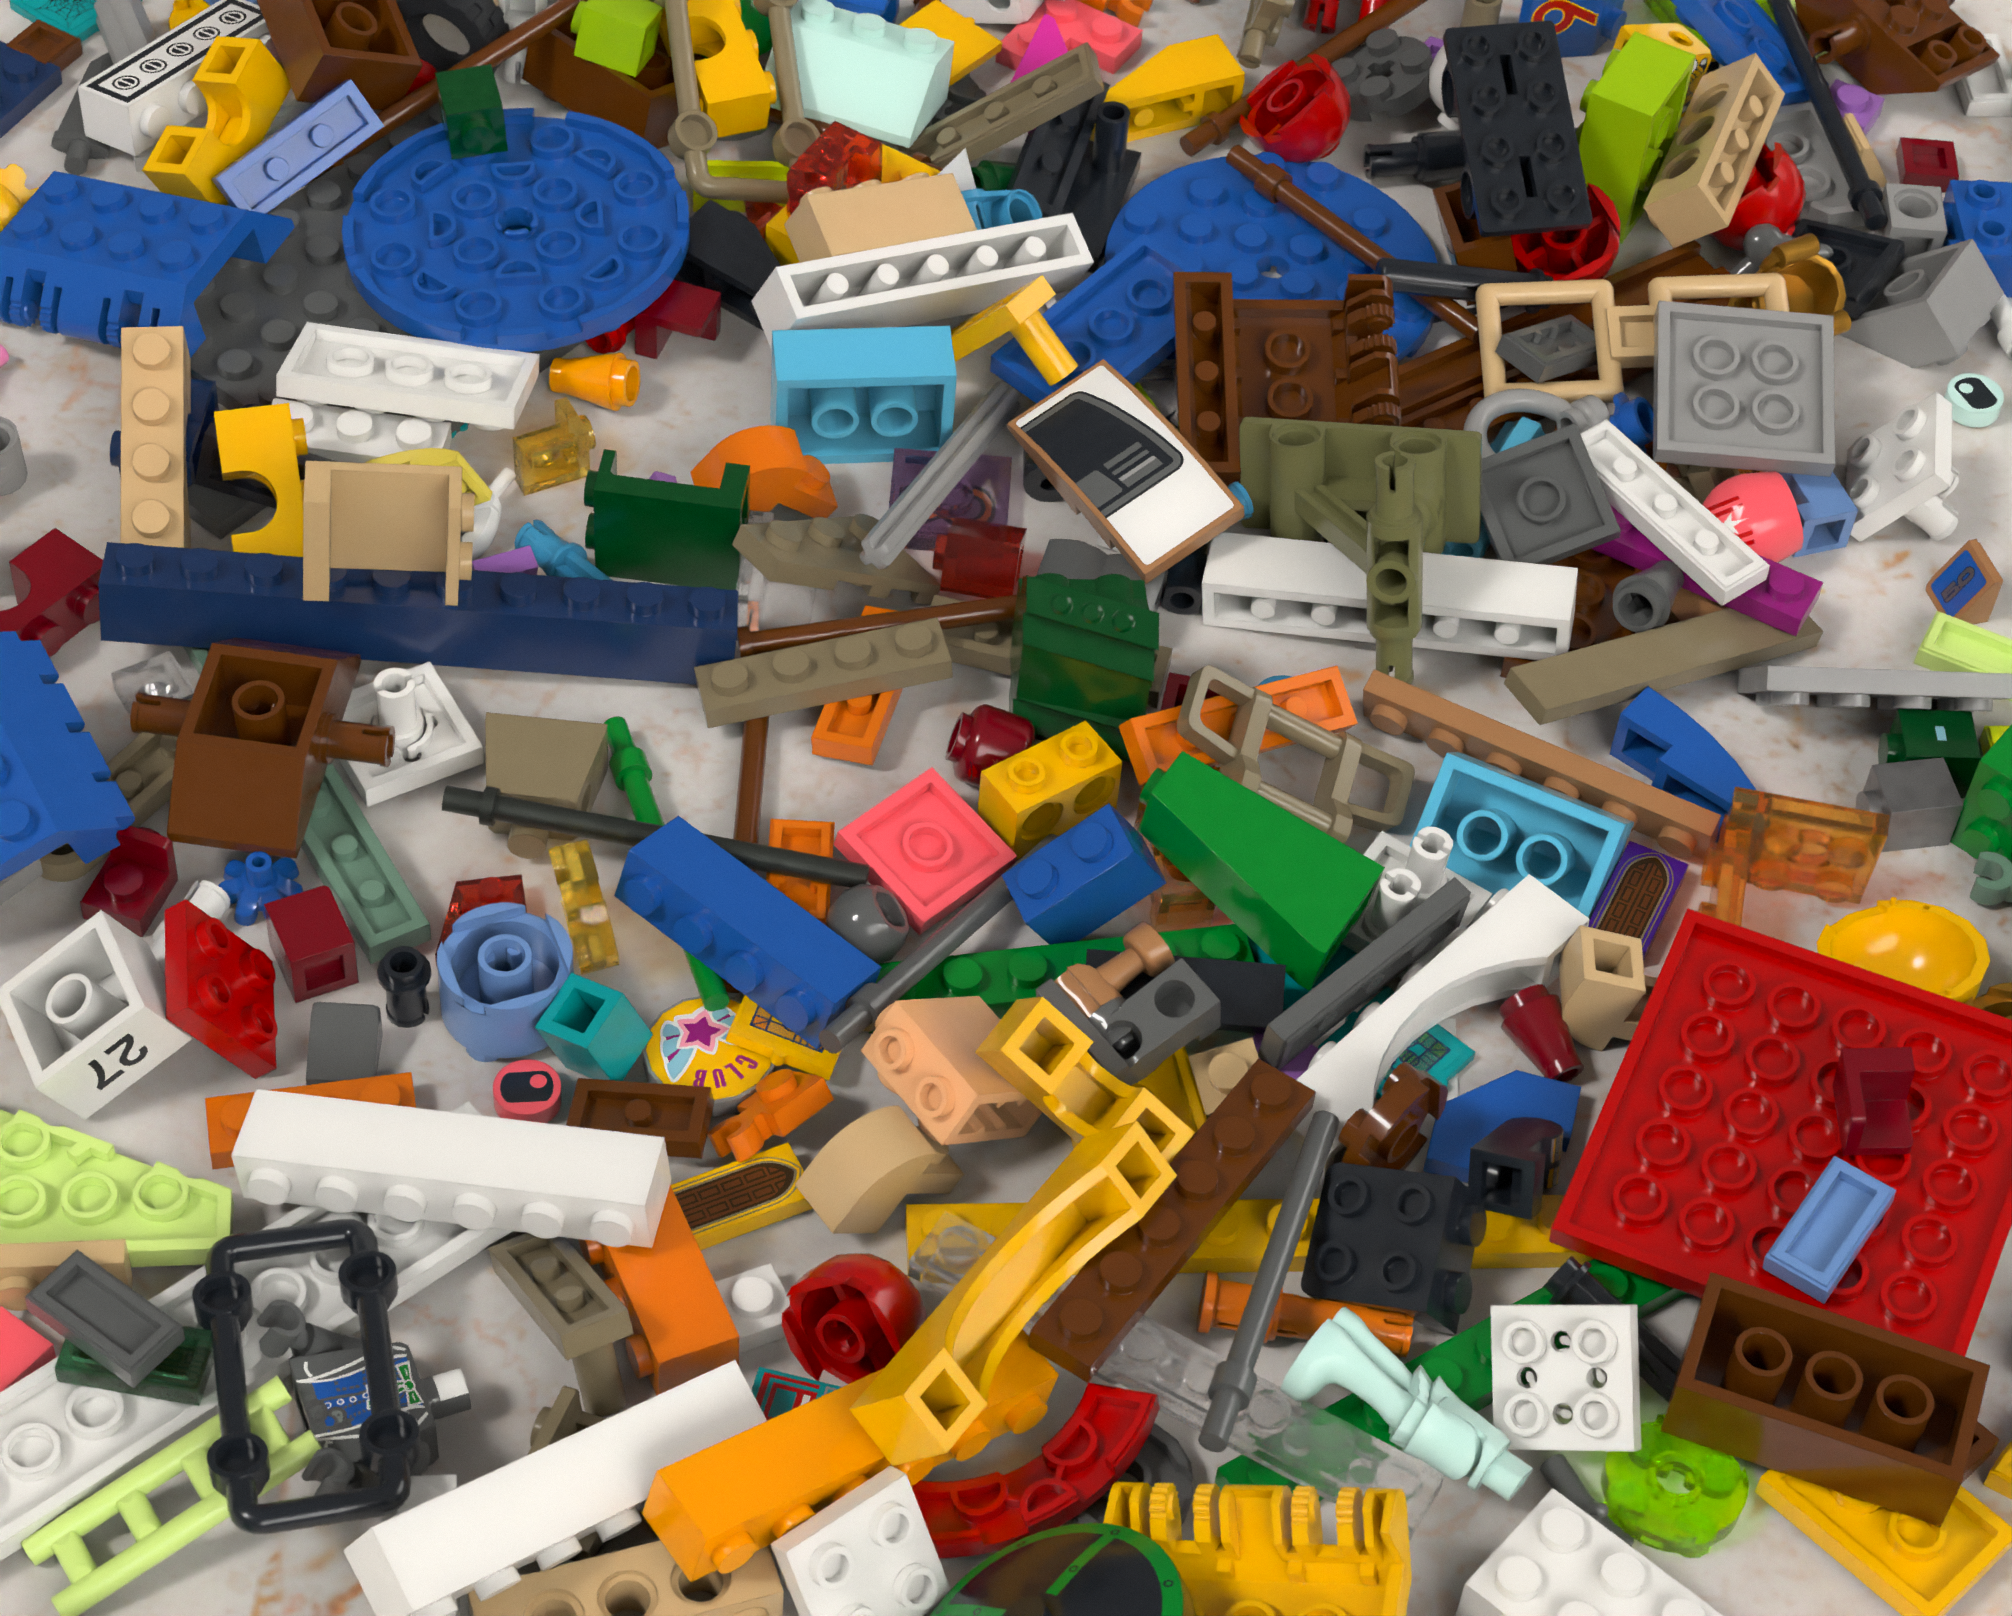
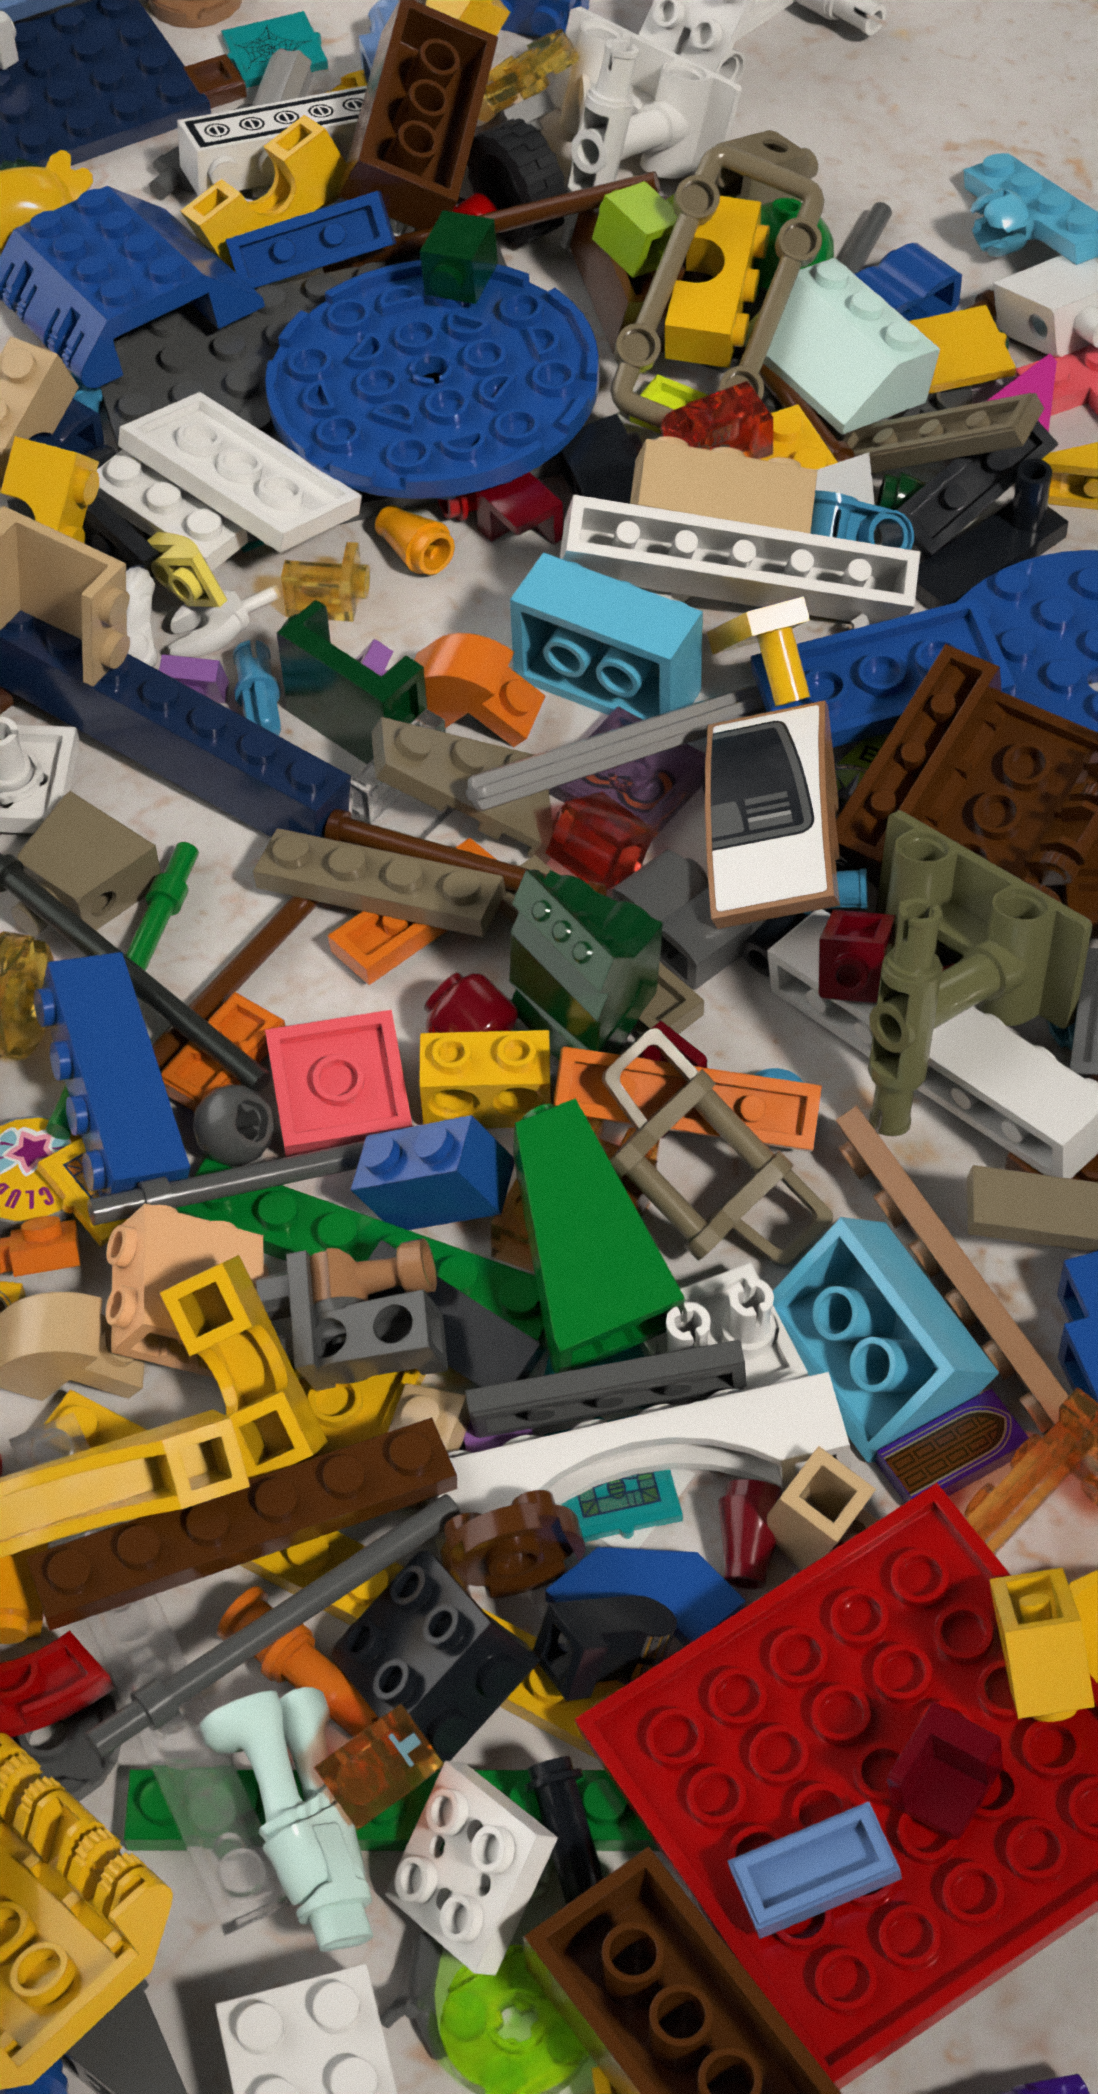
camera: 40 degrees right, 5 degrees up
(1294, 548) = (853, 954): none -> dark red bracket
(1448, 1335) = (379, 1766): none -> clear orange brick
(1874, 972) = (1042, 1645): none -> yellow slope

